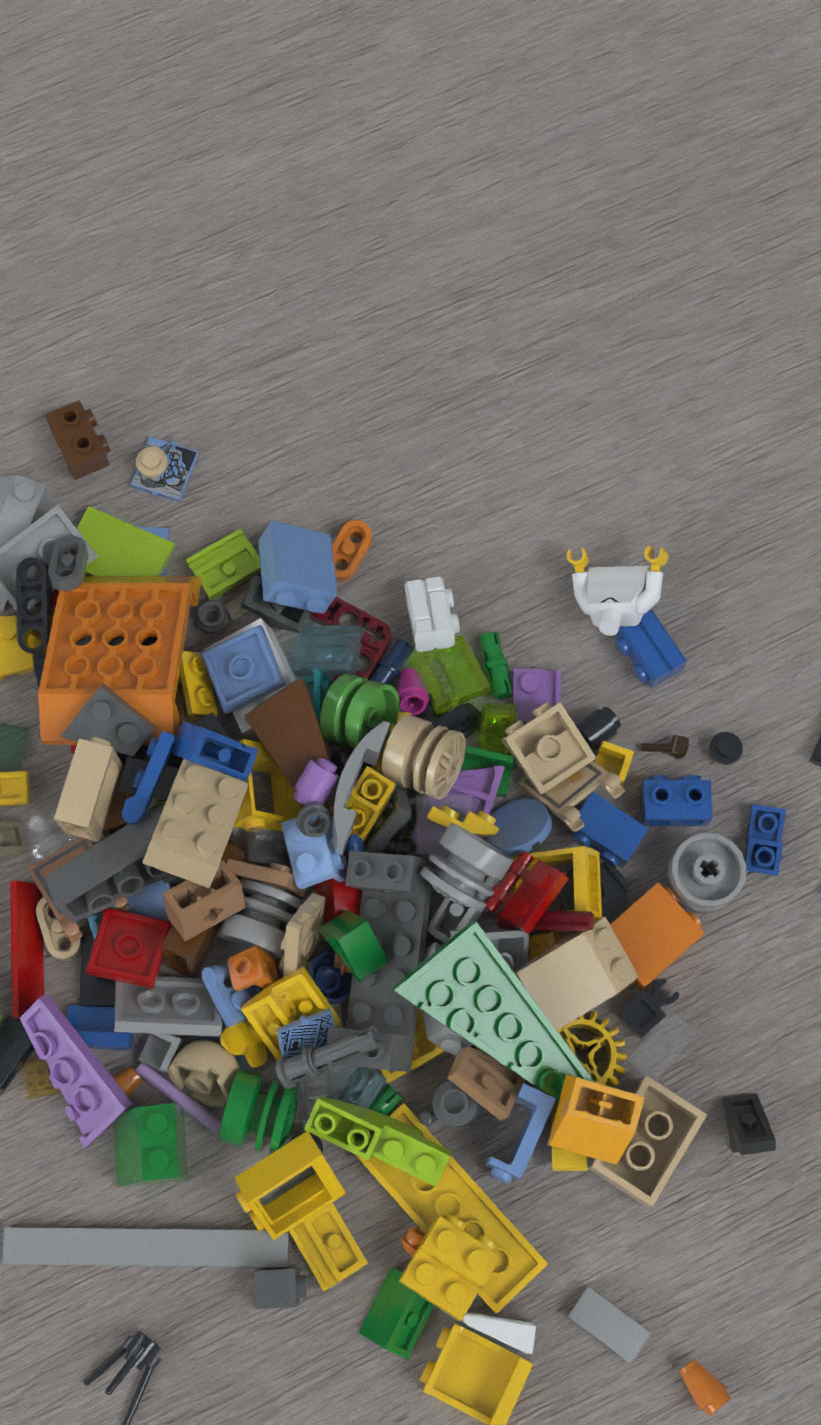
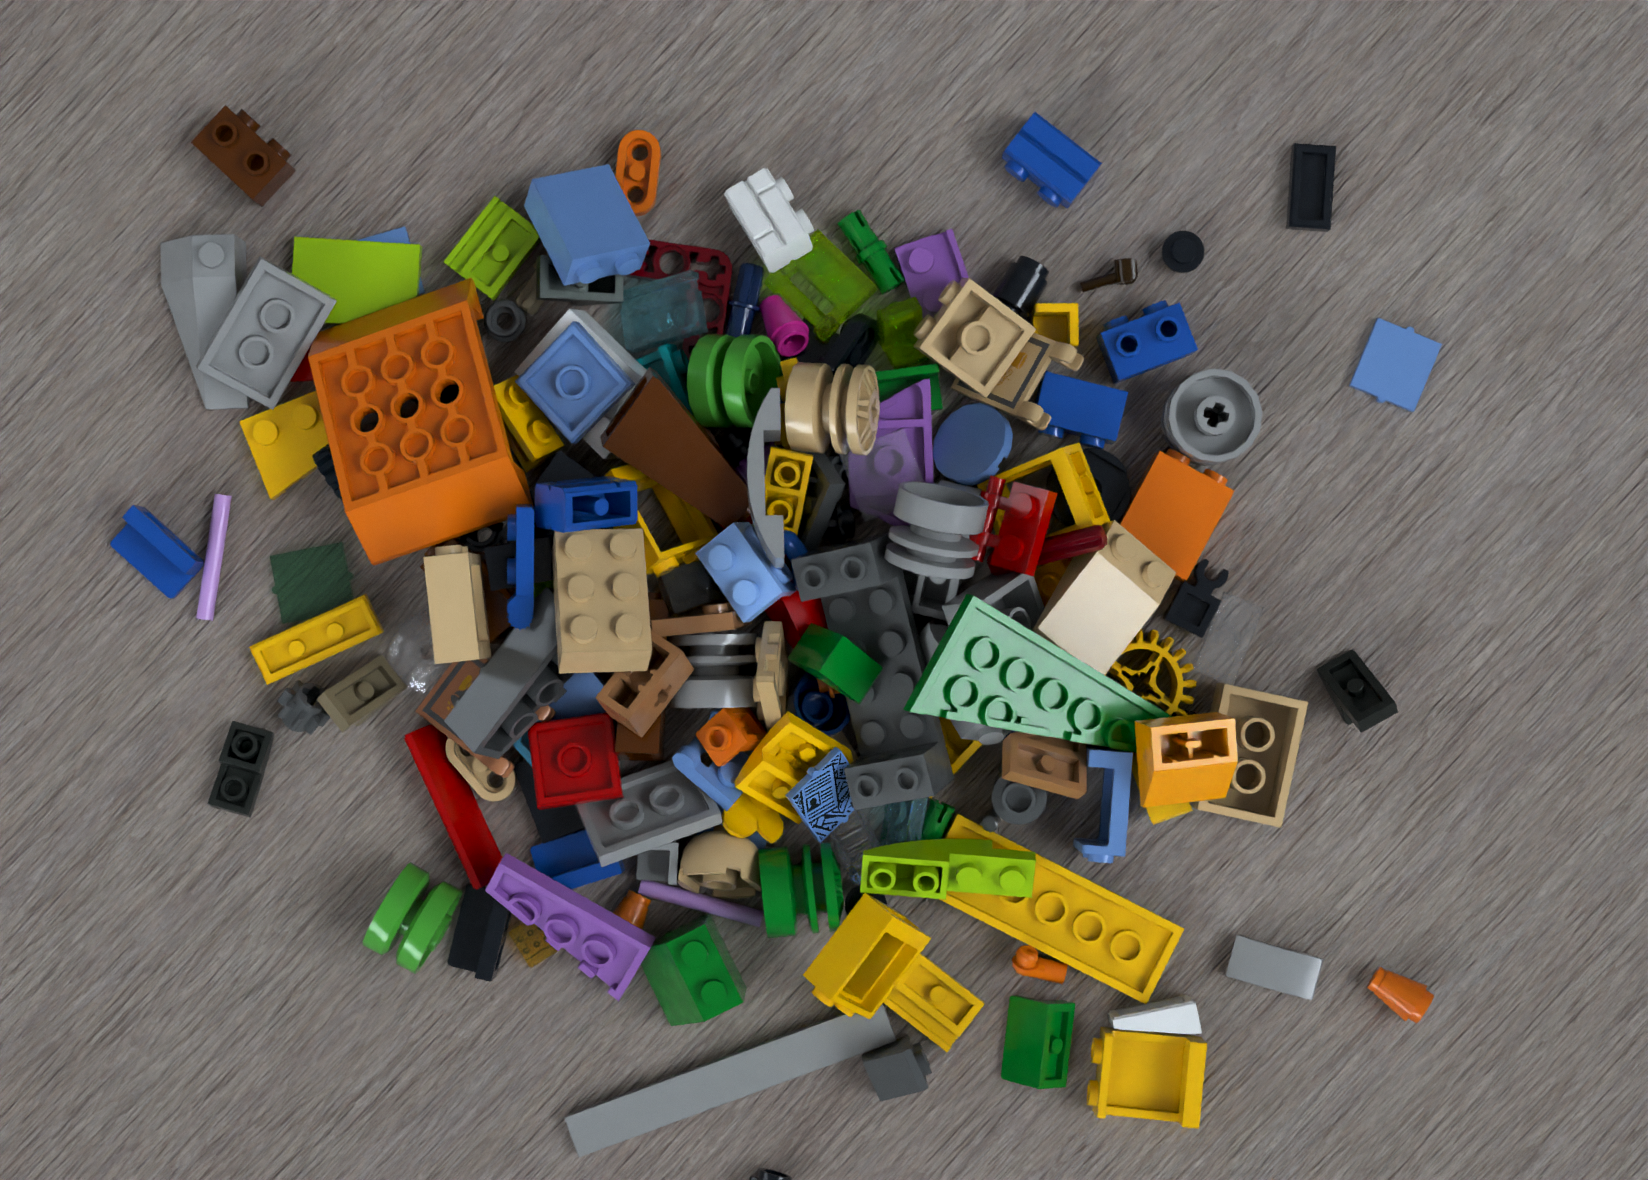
camera: 20 degrees left, 15 degrees up
(24, 593) = (290, 375): black beam -> none
(68, 563) = (310, 338): dark grey plate -> none
(110, 719) = (447, 516): dark grey wing -> none
(151, 462) = (348, 150): tan plate -> none
(175, 478) = (367, 150): piece -> none
(315, 1060) = (844, 815): dark grey pin -> none
(316, 782) = (720, 494): medium lavender brick -> none
(318, 827) = (742, 547): dark grey plate -> none
(450, 1266) = (1078, 975): yellow plate -> none
(478, 824) = (921, 466): yellow slope -> none
(617, 593) = (988, 109): white torso -> none
(764, 839) = (1265, 347): blue slope -> none

